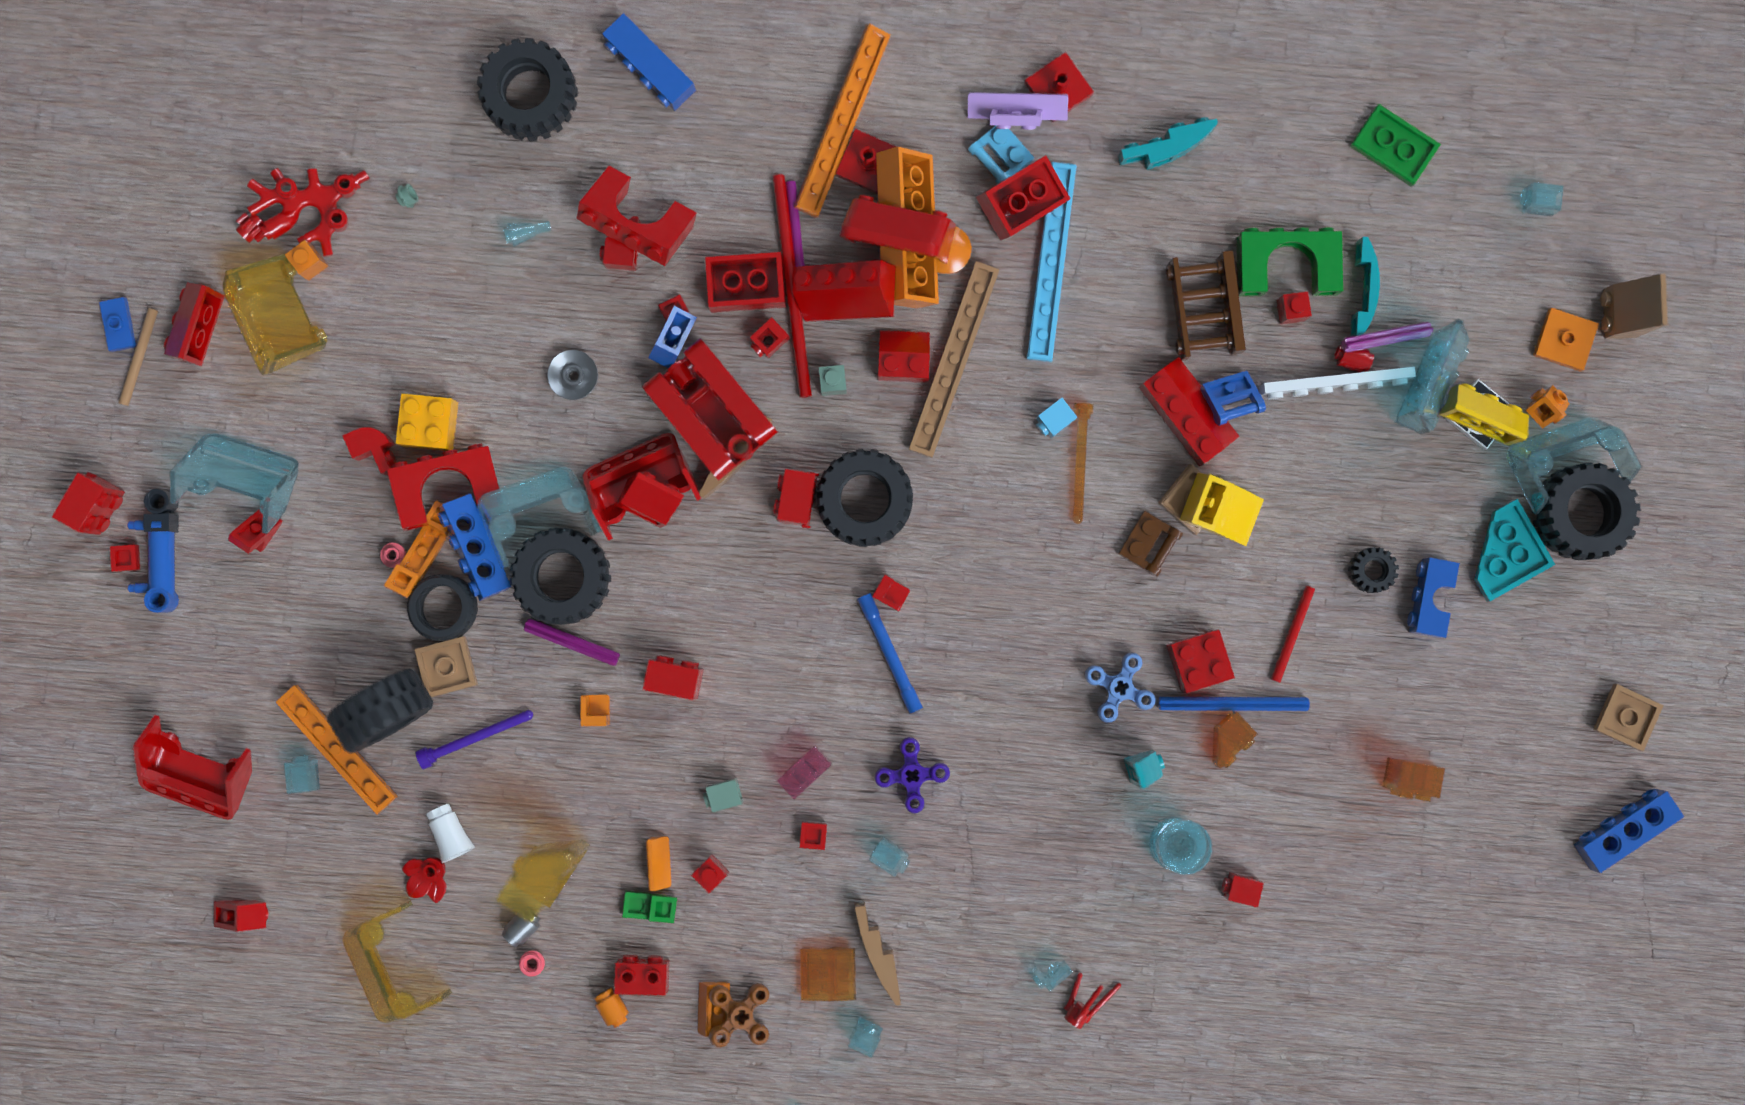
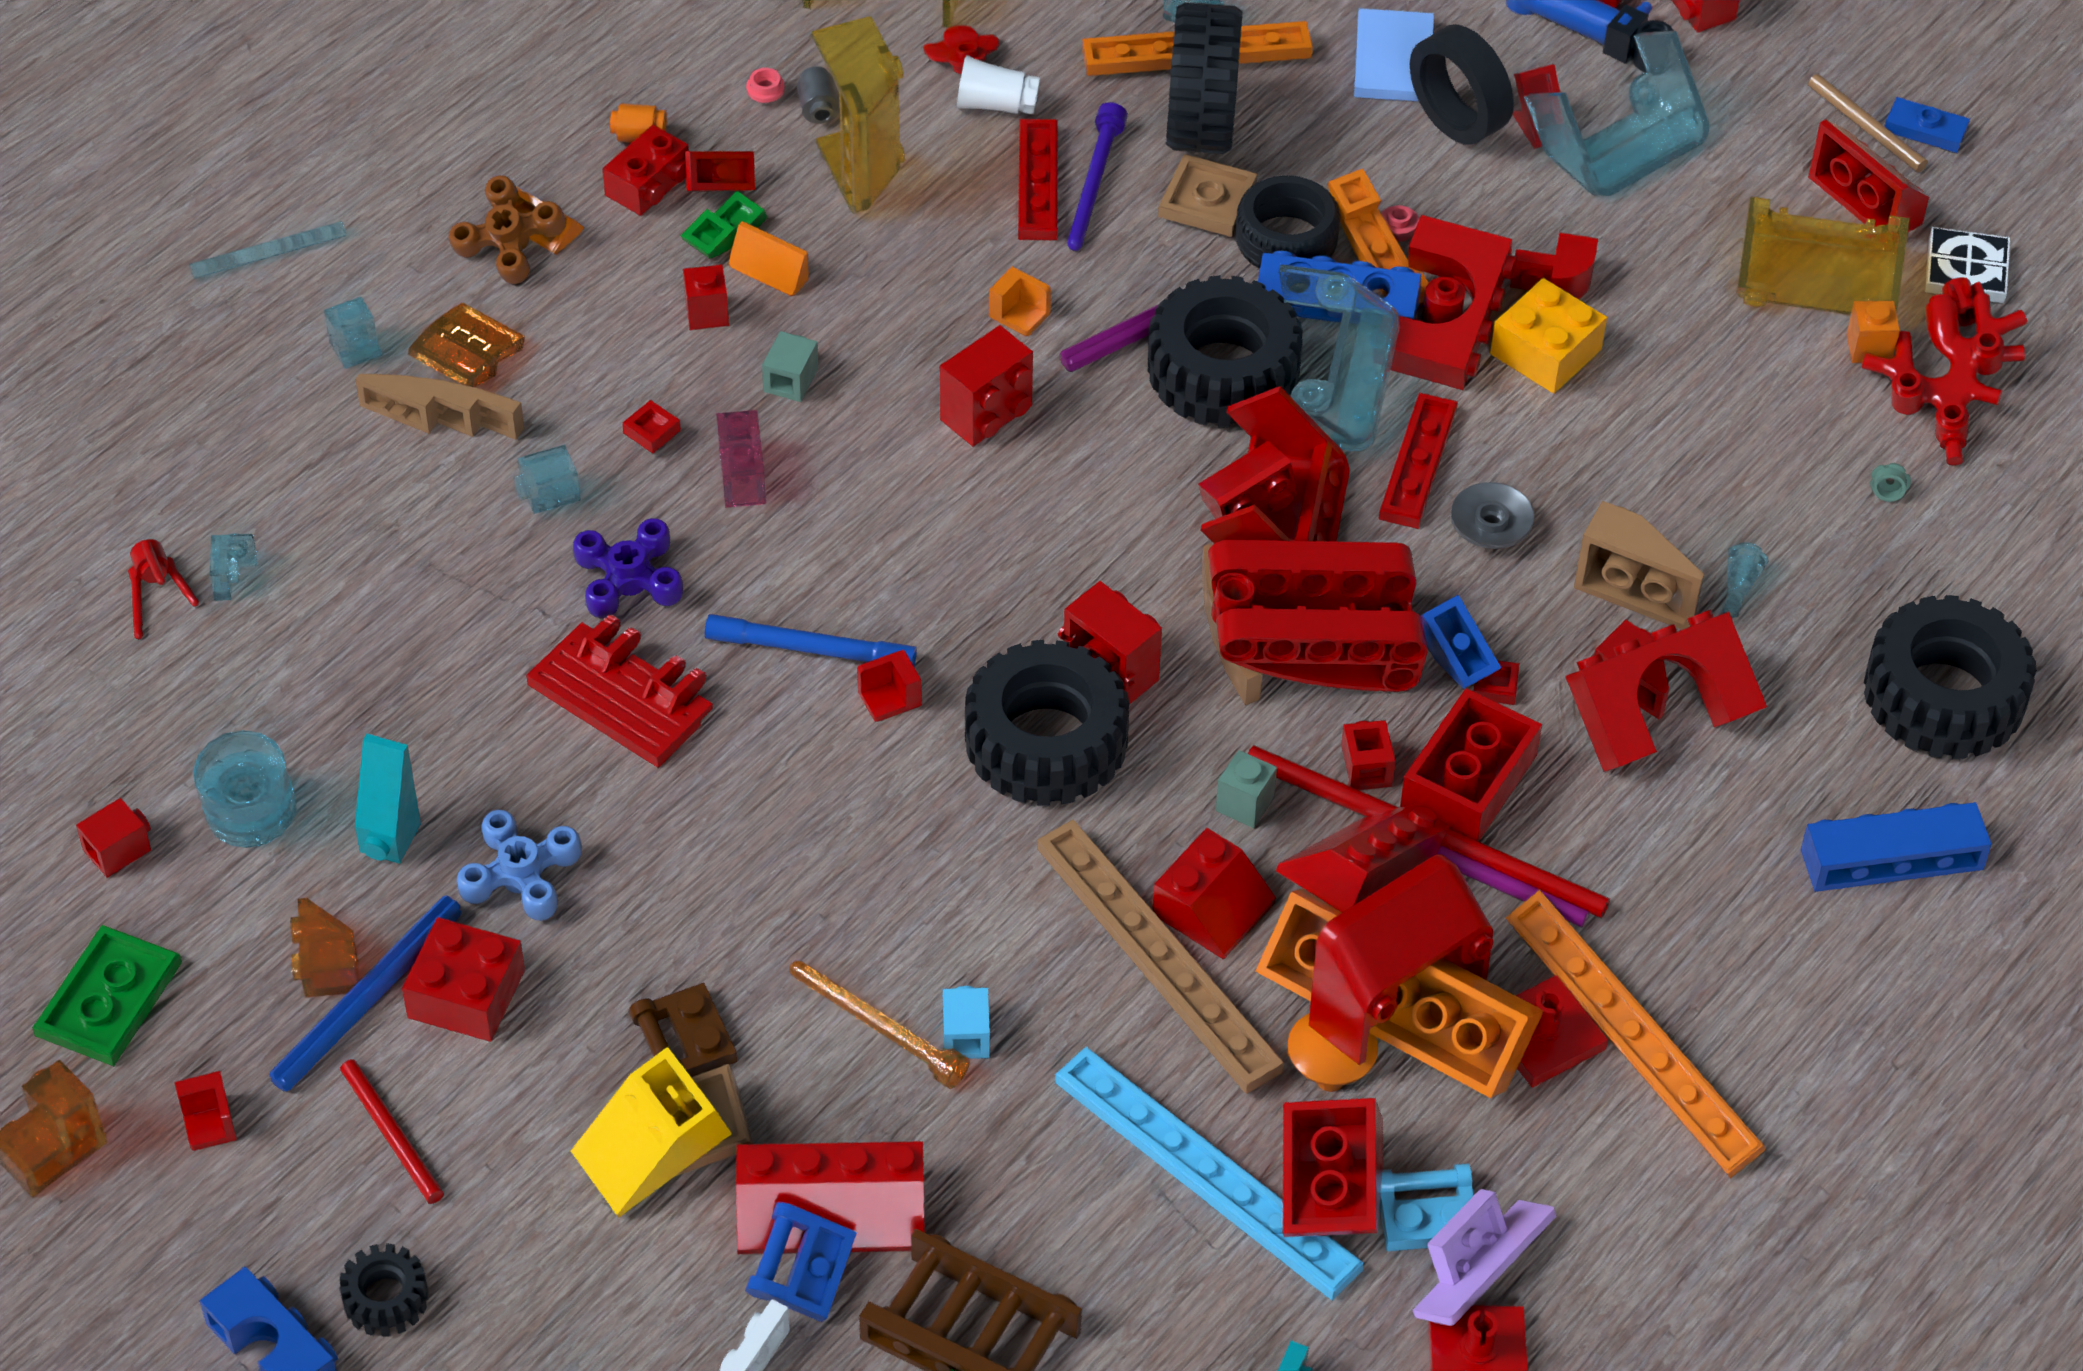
camera: 125 degrees right, 35 degrees down
(215, 244) = (1968, 256): none -> tile
(263, 641) = (1385, 50): none -> light blue tile
(280, 574) = (1482, 70): none -> black tyre
(451, 488) = (1443, 300): none -> red brick
(494, 767) = (1038, 179): none -> red tile
(555, 439) = (1418, 460): none -> red tile
(562, 280) = (1637, 567): none -> medium nougat slope
(621, 933) = (720, 171): none -> red slope
(987, 722) = (623, 701): none -> red hinge
(1319, 821) = (107, 995): none -> green tile
(1346, 721) = (205, 1110): none -> red panel

